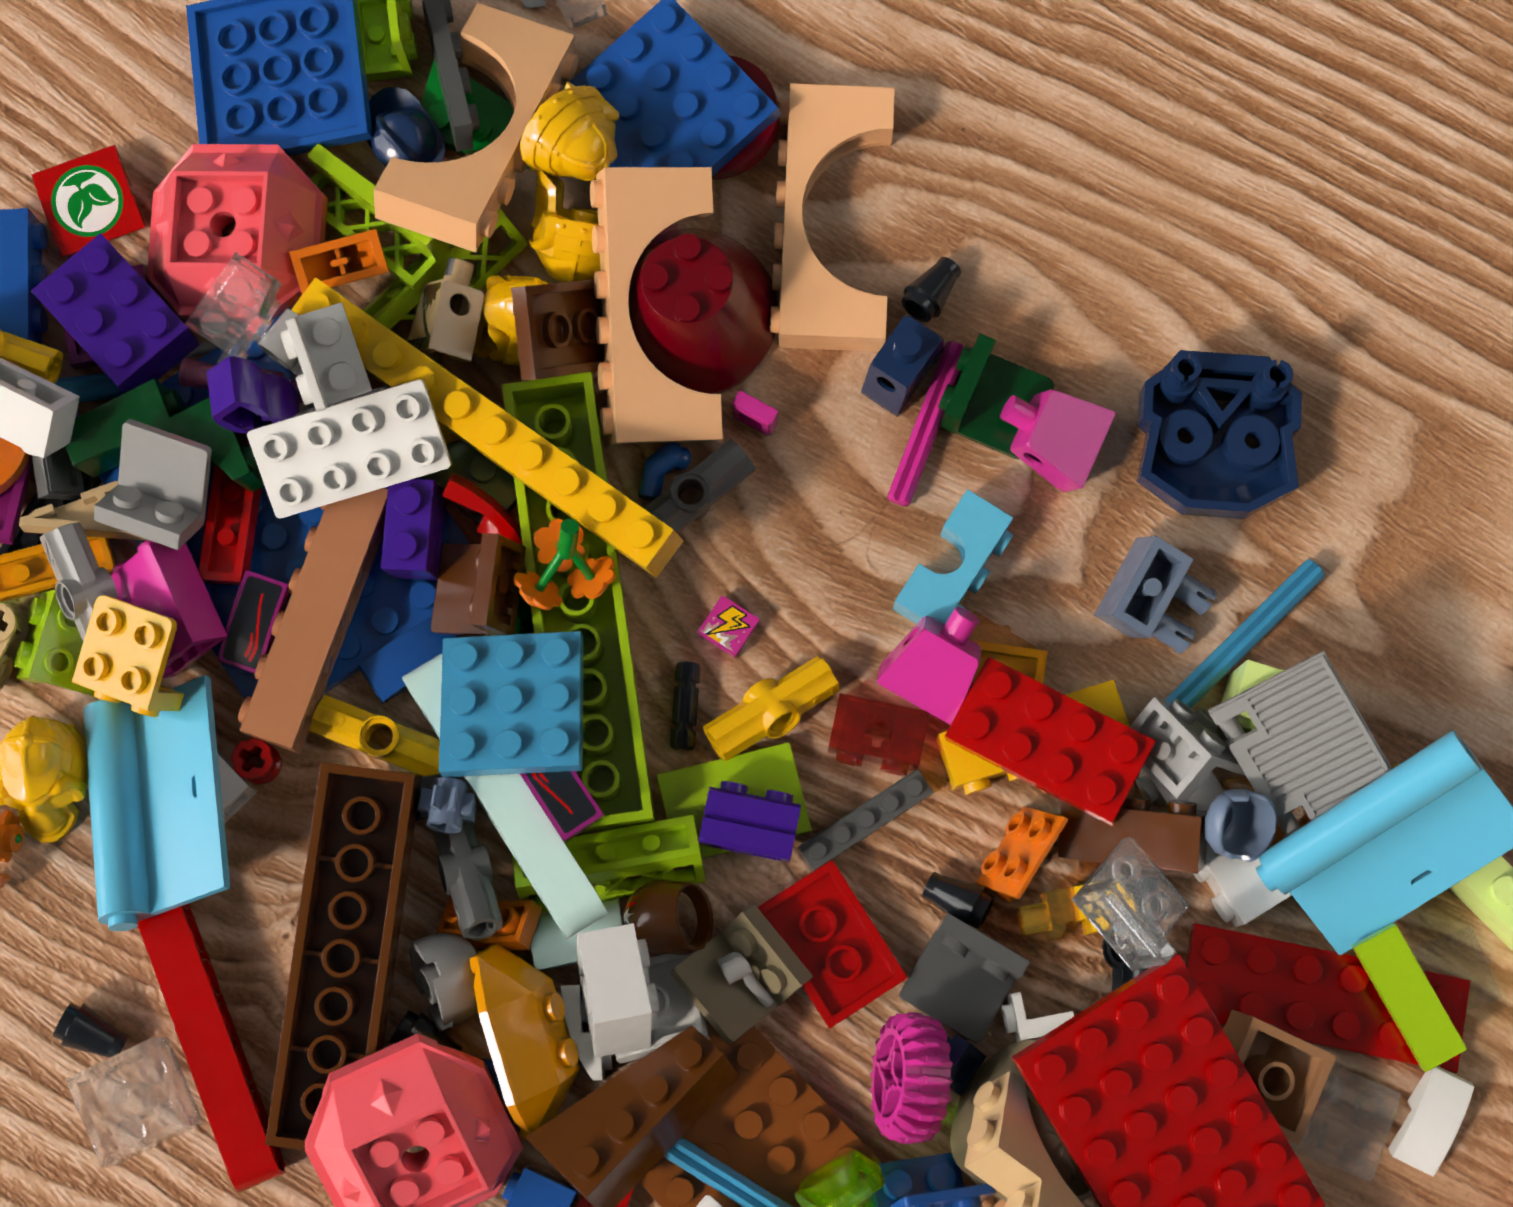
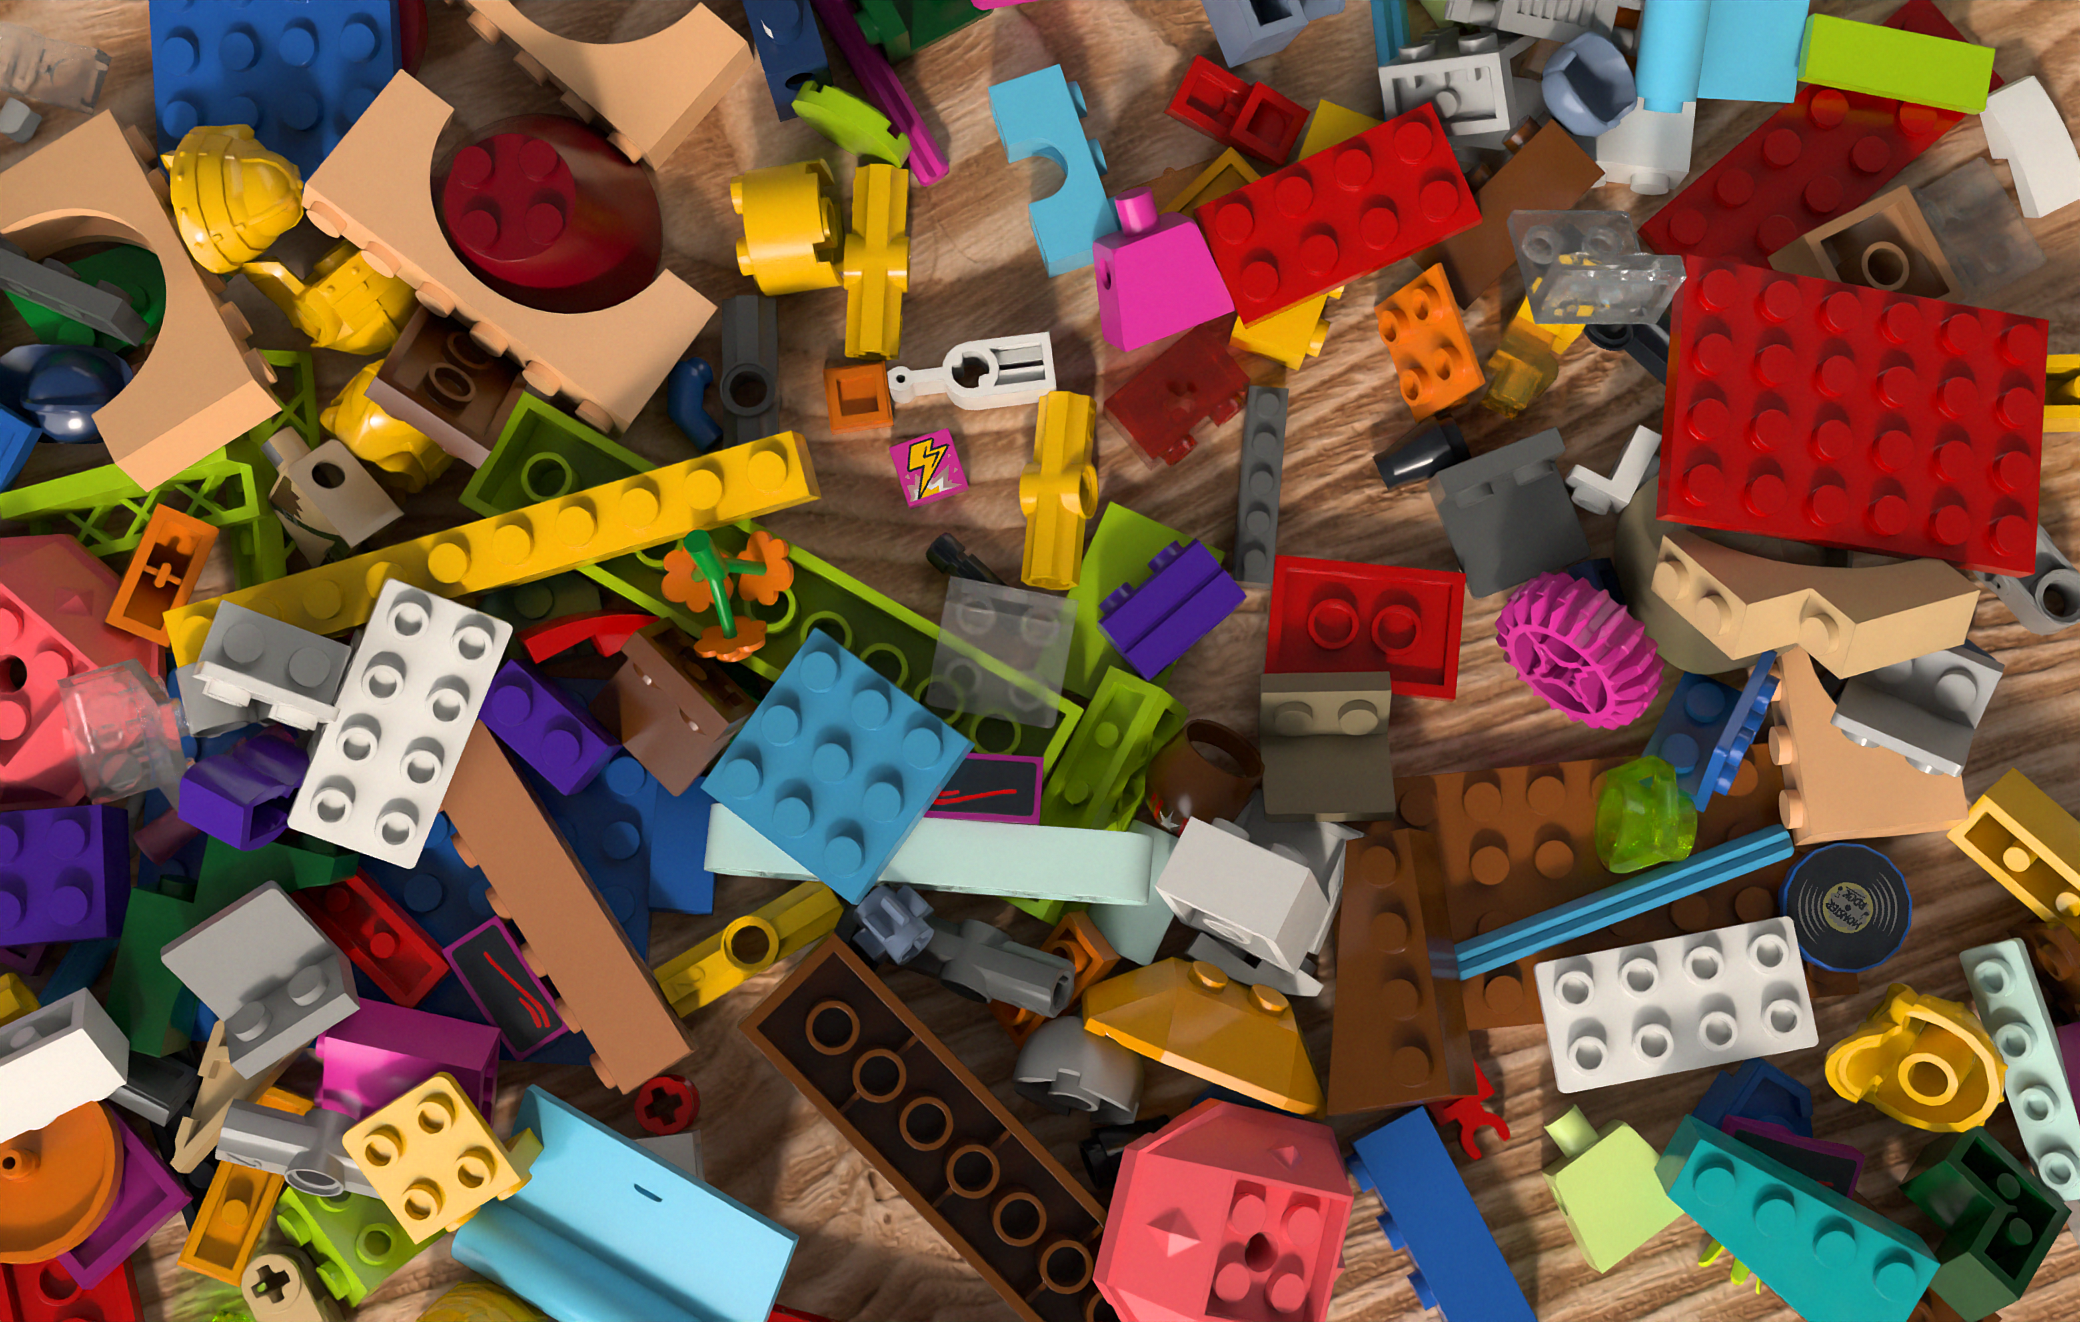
camera: 50 degrees left, 5 degrees up
(649, 746) = (1002, 652): none -> clear bracket
(735, 968) = (1315, 746): light grey hand -> none
(738, 556) = (858, 397): none -> orange tile
(755, 413) = (710, 252): dark pink tile -> none
(799, 443) = (789, 227): none -> yellow brick
(821, 507) = (877, 263): none -> yellow piece
(821, 631) = (1017, 369): none -> white piece
(885, 431) = (851, 124): none -> lime tile
(1072, 639) = (1235, 113): none -> red slope

